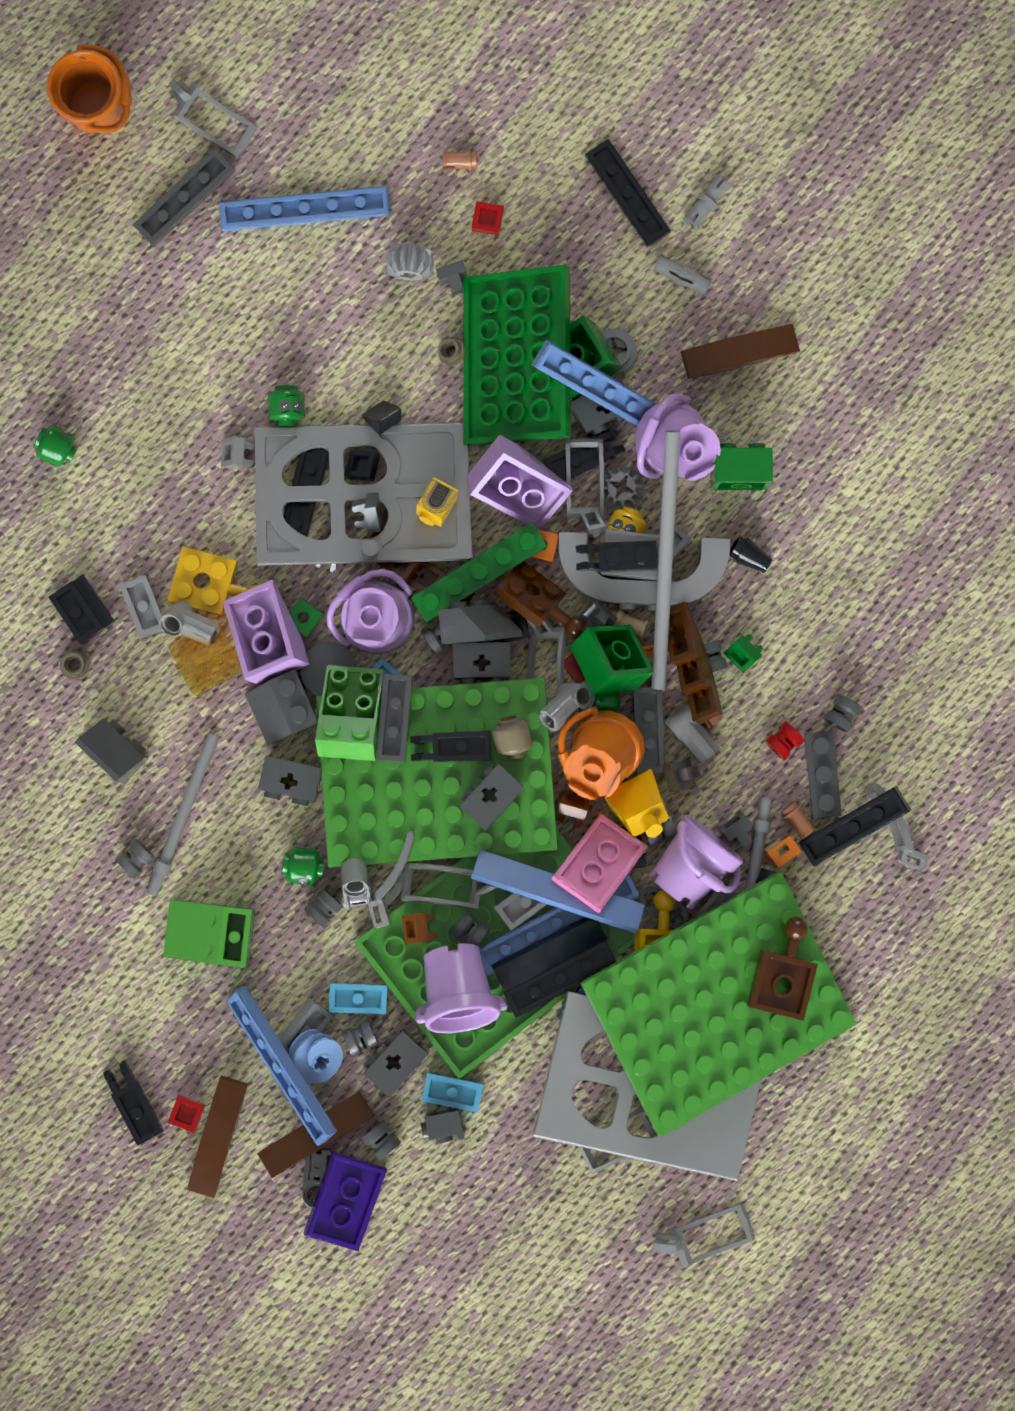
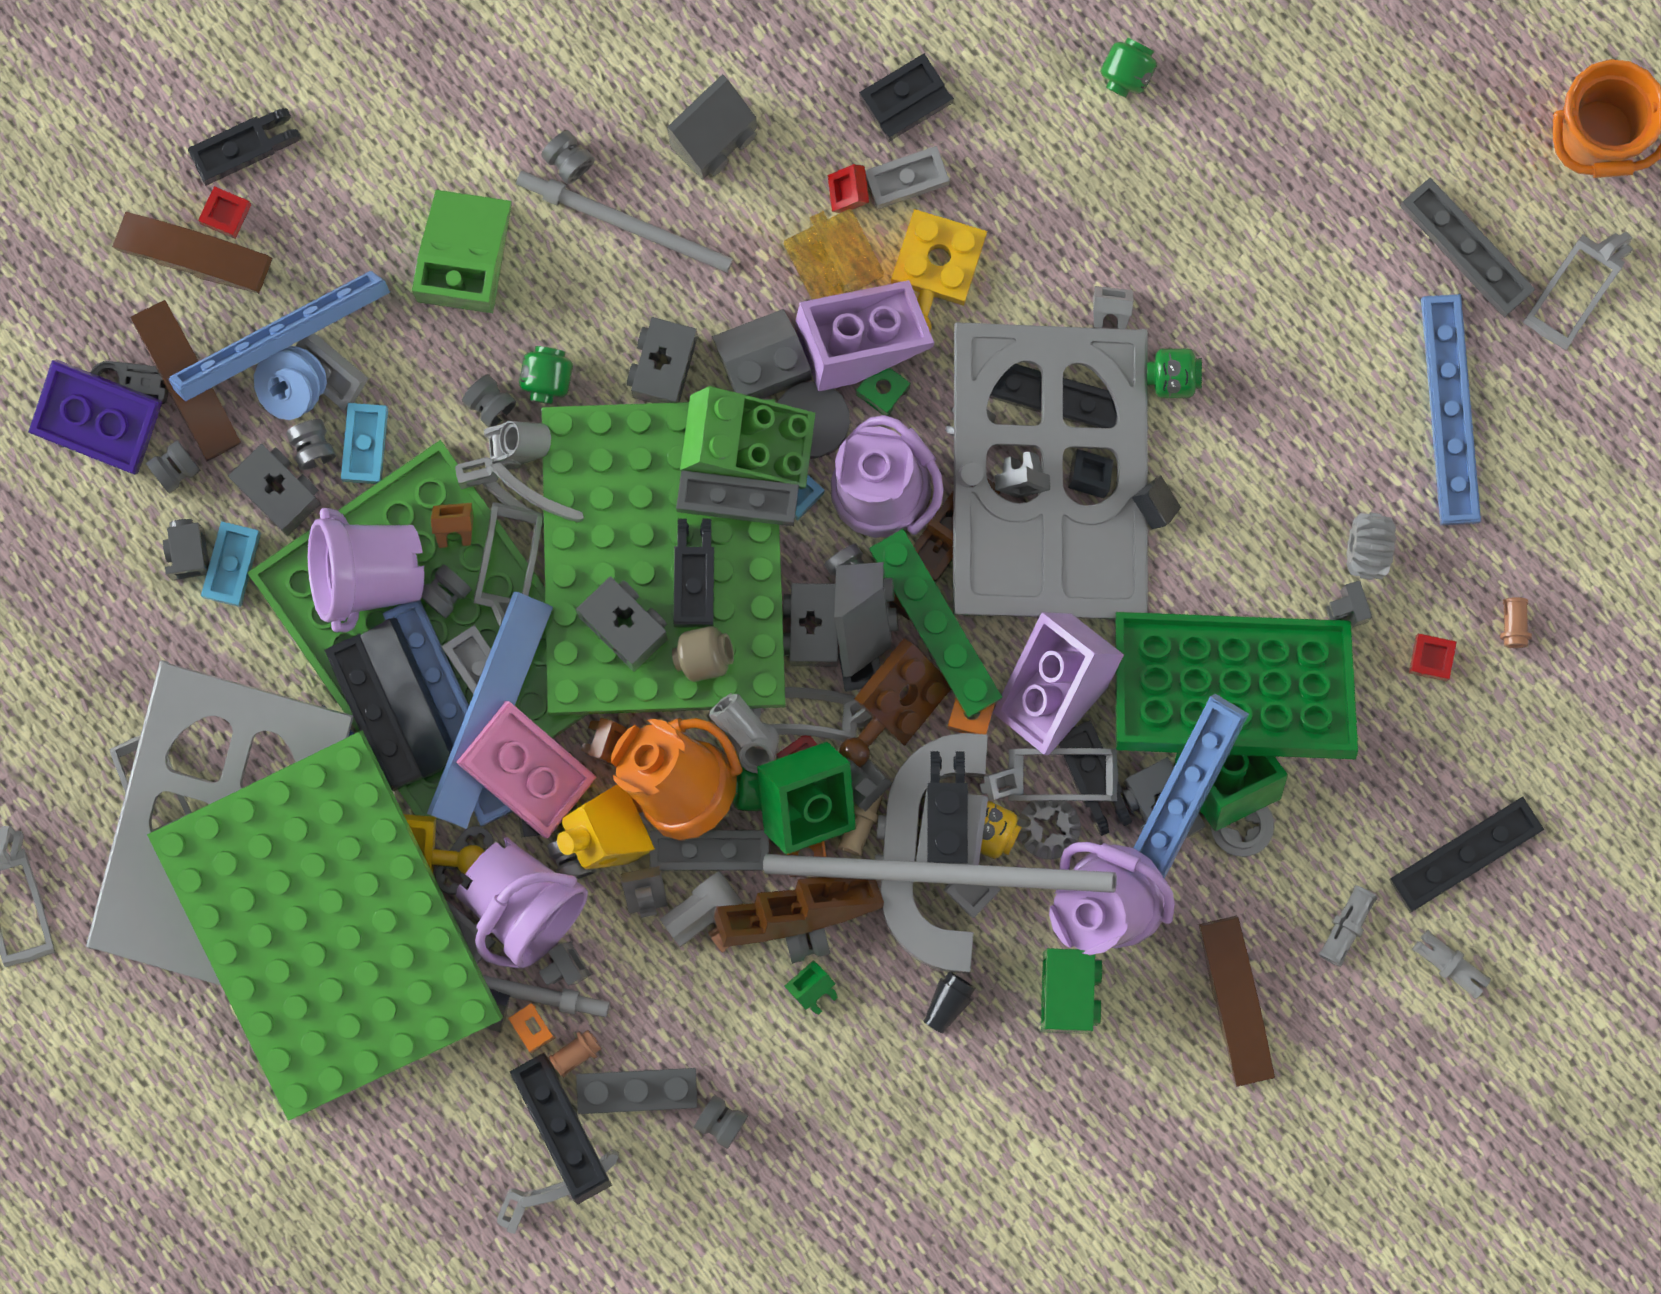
camera: 95 degrees right, 5 degrees down
(65, 664) = (832, 74): dark tan plate -> none
(153, 649) = (848, 188): none -> red plate
(184, 621) = (884, 228): light grey piece -> none
(436, 503) = (1031, 567): brick -> none
(445, 347) = (1246, 591): dark tan plate -> none
(774, 966) = (370, 1003): reddish brown plate -> none
(784, 740) = (677, 1033): red wheel -> none

